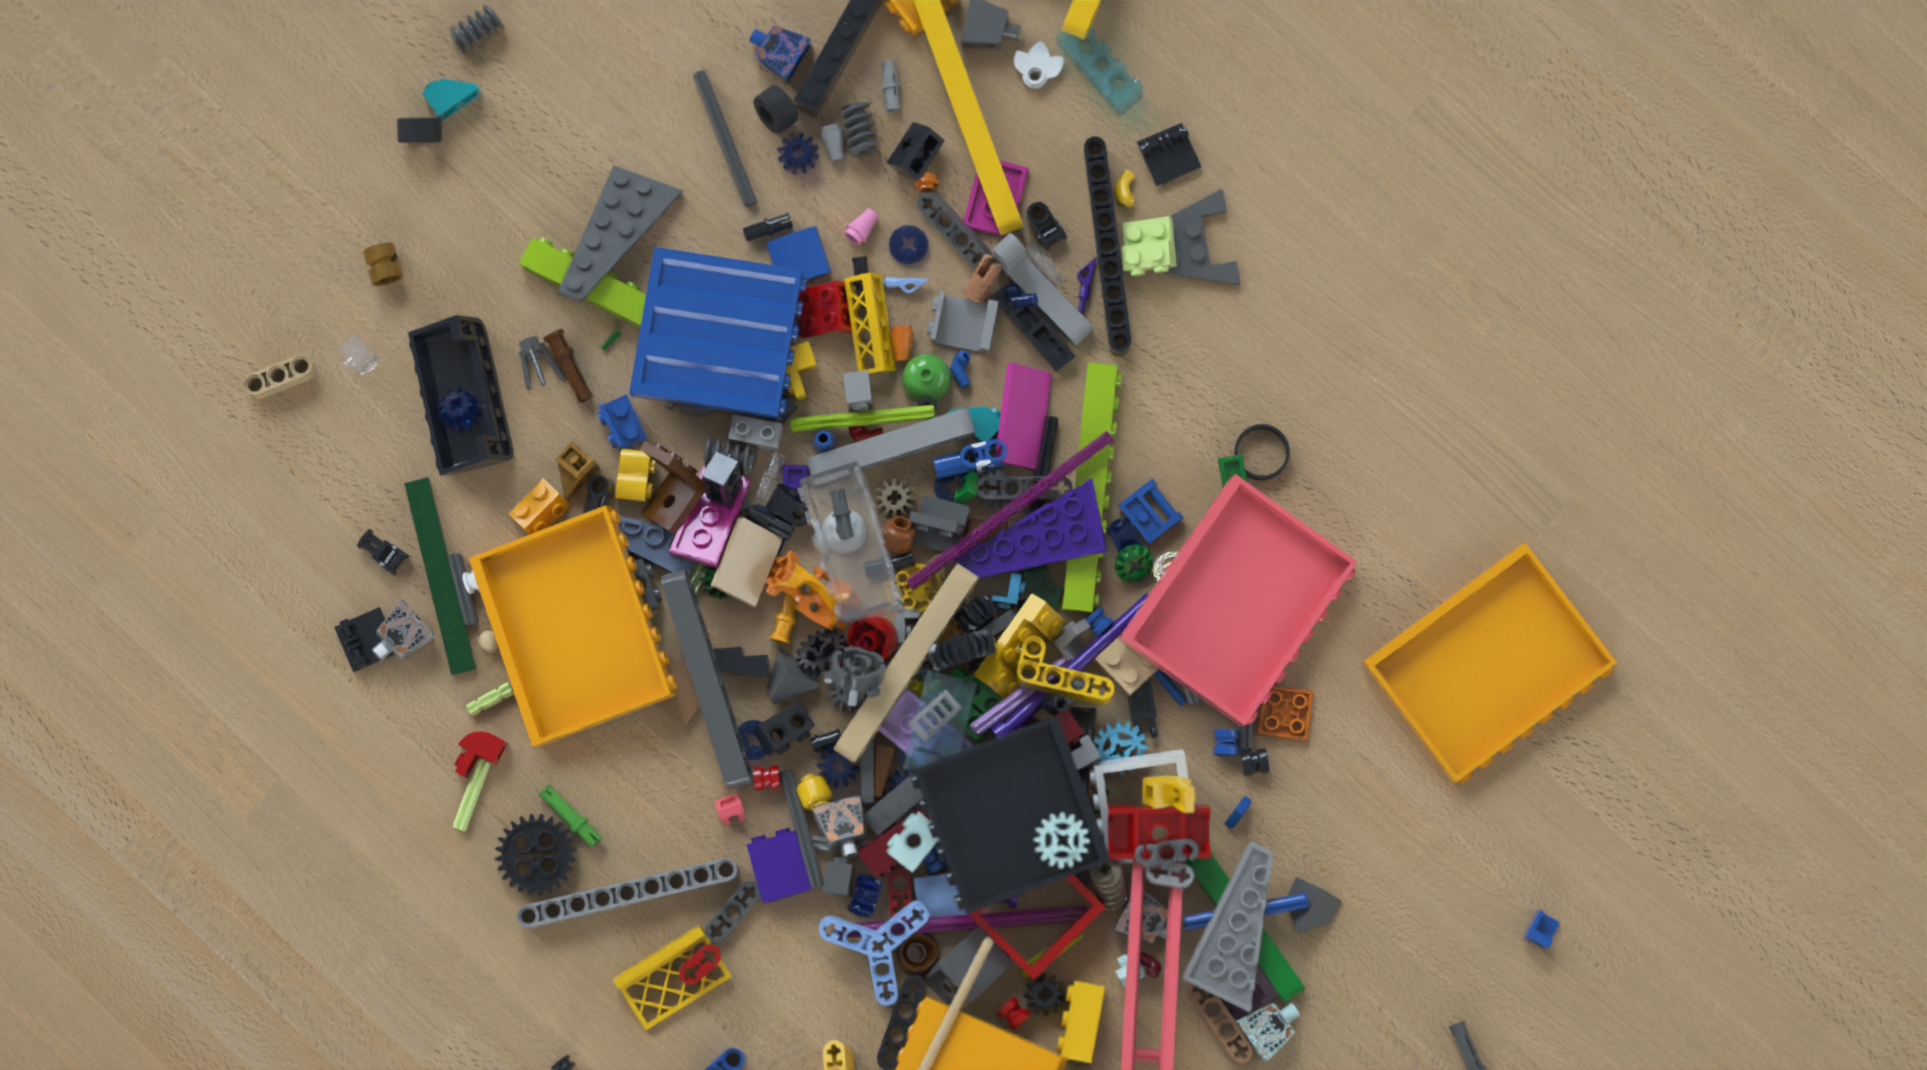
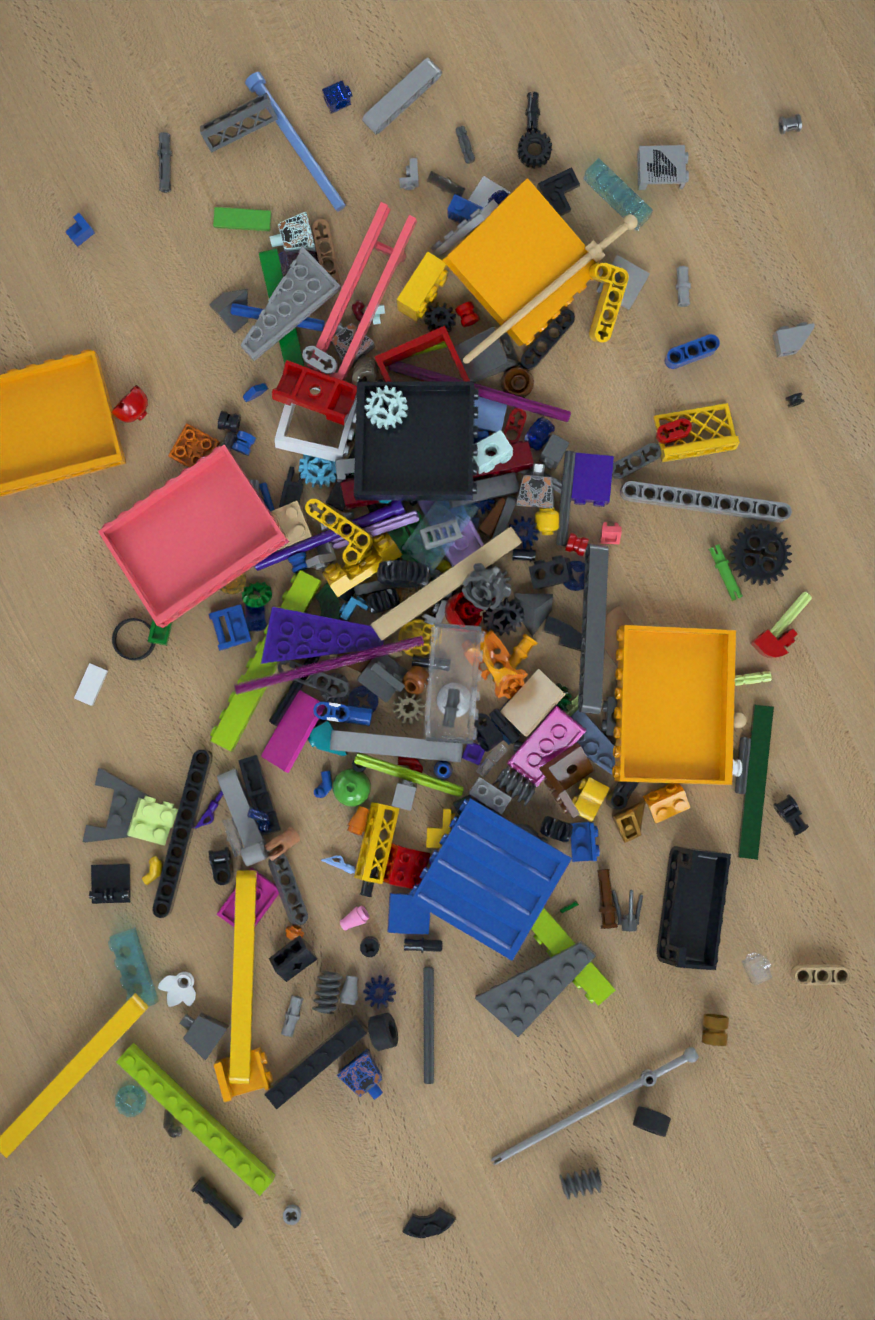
camera: 165 degrees left, 5 degrees up
(360, 637) = (825, 756): black hinge -> none
(401, 633) = (800, 749): torso -> none
(402, 223) = (690, 1055): none -> light grey bar
(449, 96) = (620, 1138): teal slope -> none
(462, 416) = (693, 903): clear blue gear -> none
(660, 423) = (556, 829): none -> black gear
(722, 479) = (527, 767): black brick -> none
(830, 205) = (371, 943): none -> black wheel
(866, 944) = (546, 402): light blue piece -> none
(908, 255) = (317, 888): clear blue gear -> none
(963, 323) = (309, 817): light grey panel -> none
(968, 489) = (353, 693): green tile -> none
(1053, 704) = (354, 512): black pin -> none
(1156, 860) = (322, 378): dark grey piece -> none
(1169, 792) = (294, 415): yellow brick -> none
(1291, 378) = (91, 684): none -> white tile
(1344, 1025) = (242, 219): none -> bright green tile
(1382, 732) = (132, 406): none -> red cylinder

